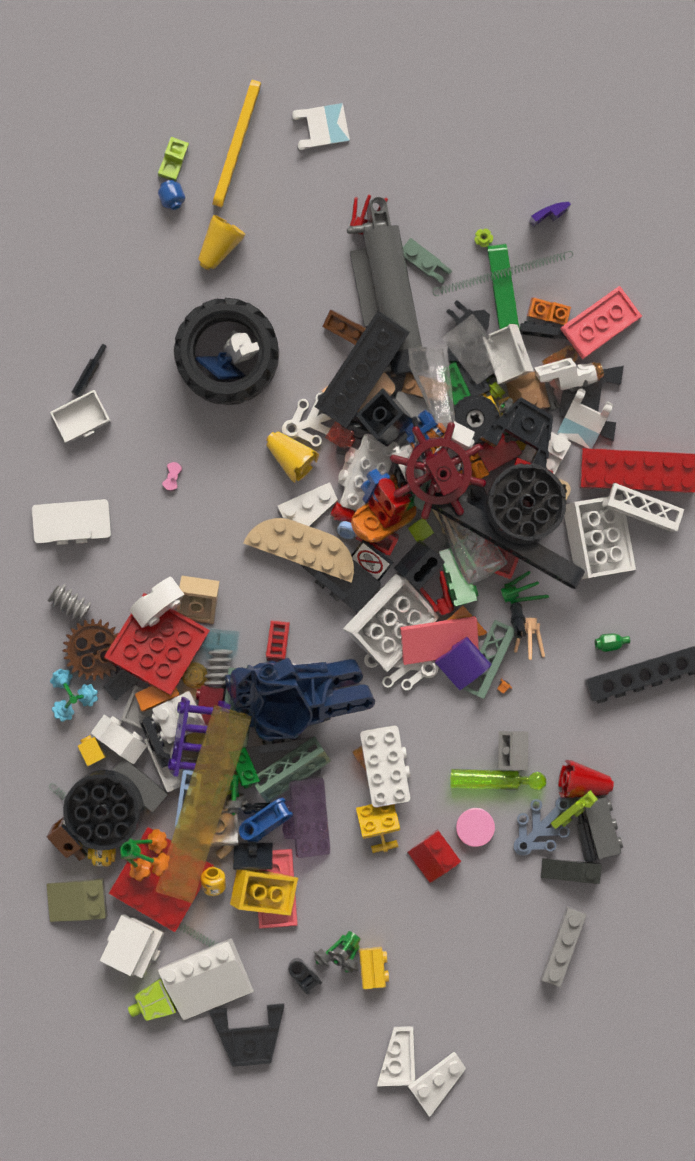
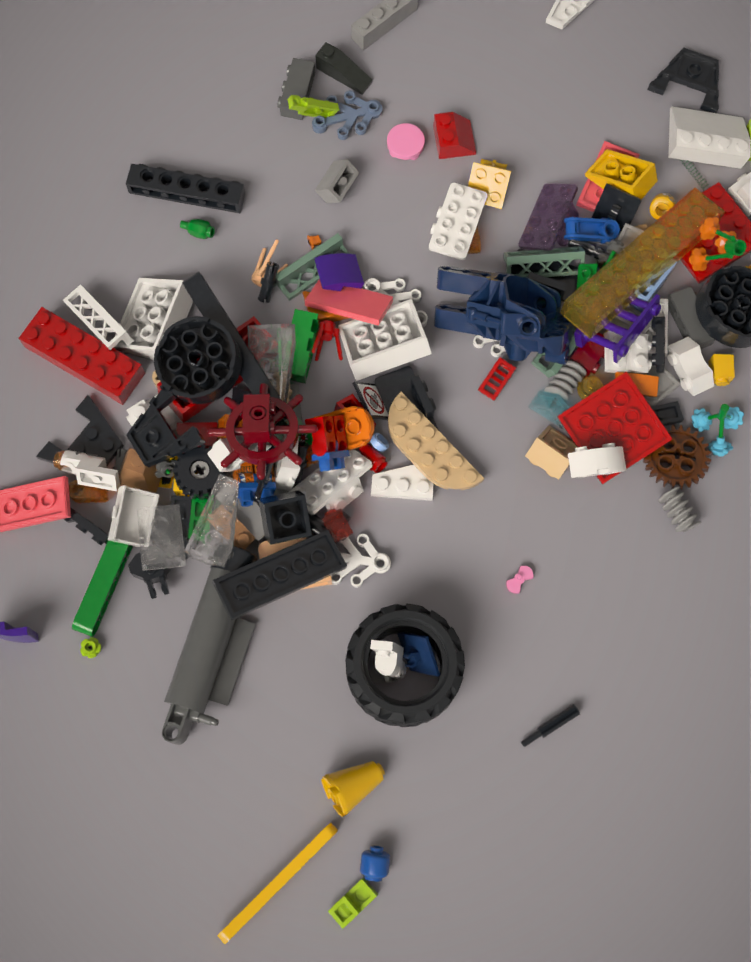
camera: 155 degrees left, 15 degrees down
(71, 521) = (641, 586): white bracket -> none
(80, 417) = (582, 683): white container -> none
(291, 455) = (394, 536): yellow cone -> none
(305, 976) = (619, 100): black piece -> none
(325, 125) = (178, 851): white flag -> none
(339, 956) = (579, 89): plant -> none
(343, 326) = (274, 629): reddish brown piece -> none
(360, 220) = (199, 728): red plant -> none
(372, 967) = (556, 77): yellow brick -> none
(419, 564) = (329, 372): black piece -> none
(420, 530) = (310, 407): lime slope -> none
(424, 260) = (160, 657): sand green hinge -> none
(495, 779) = (368, 169): clear neon green piece -> none
(496, 390) = (165, 495): lime plate -> none
(501, 273) = (90, 598): sand green piece -> none
(511, 592) = (261, 311): green plant -> none
(548, 311) = (73, 543): orange slope -> none
(579, 780) = (293, 129): red cone -> none
(584, 423) = (104, 422): white flag -> none
(586, 840) = (317, 85): black axle -> none

